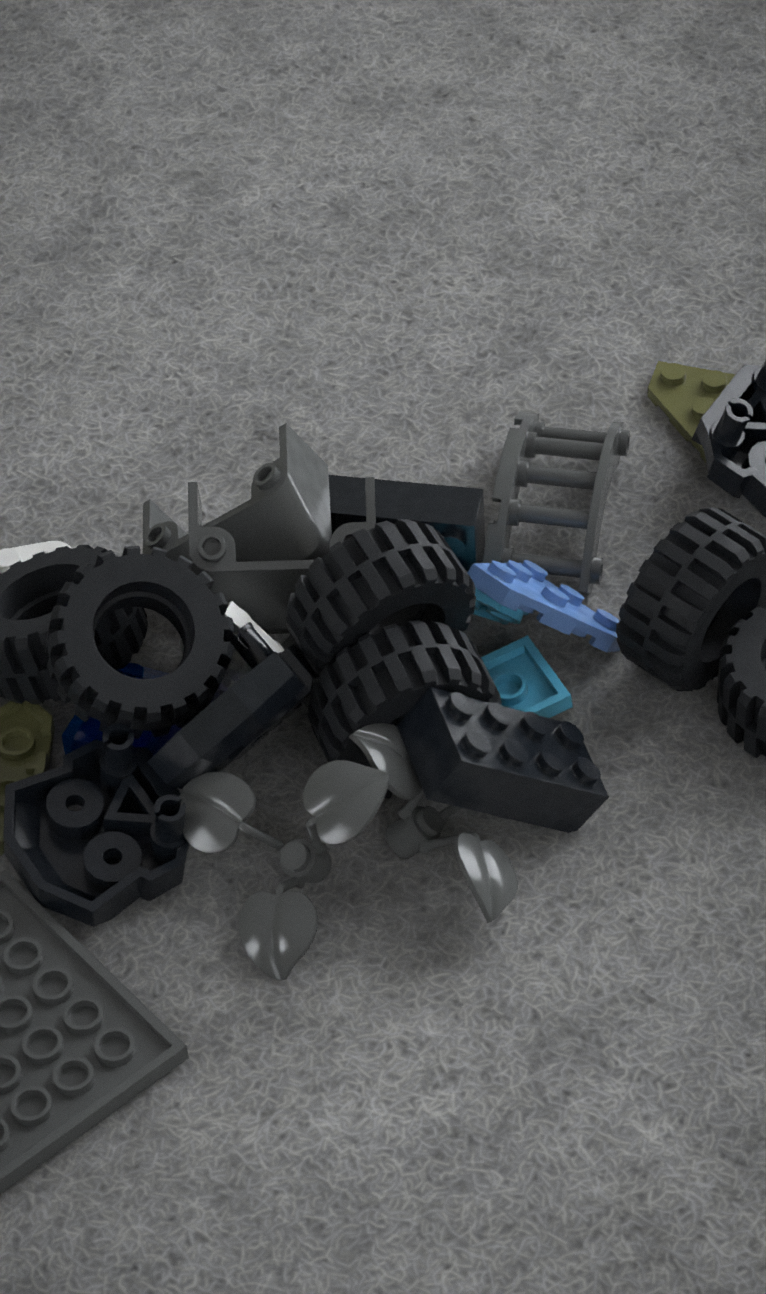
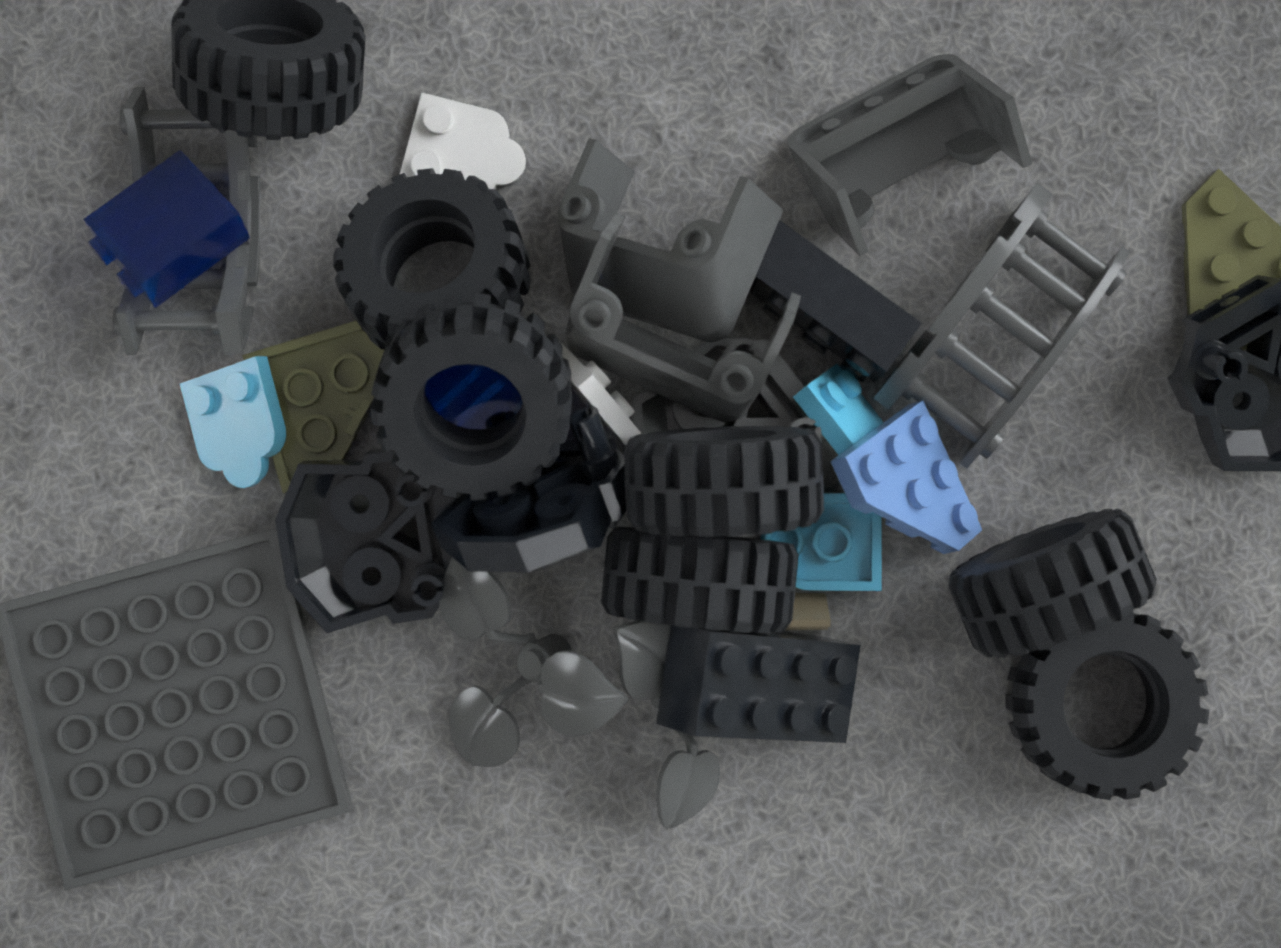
camera: 25 degrees right, 40 degrees up
(415, 414) = (899, 130): none -> dark grey windscreen

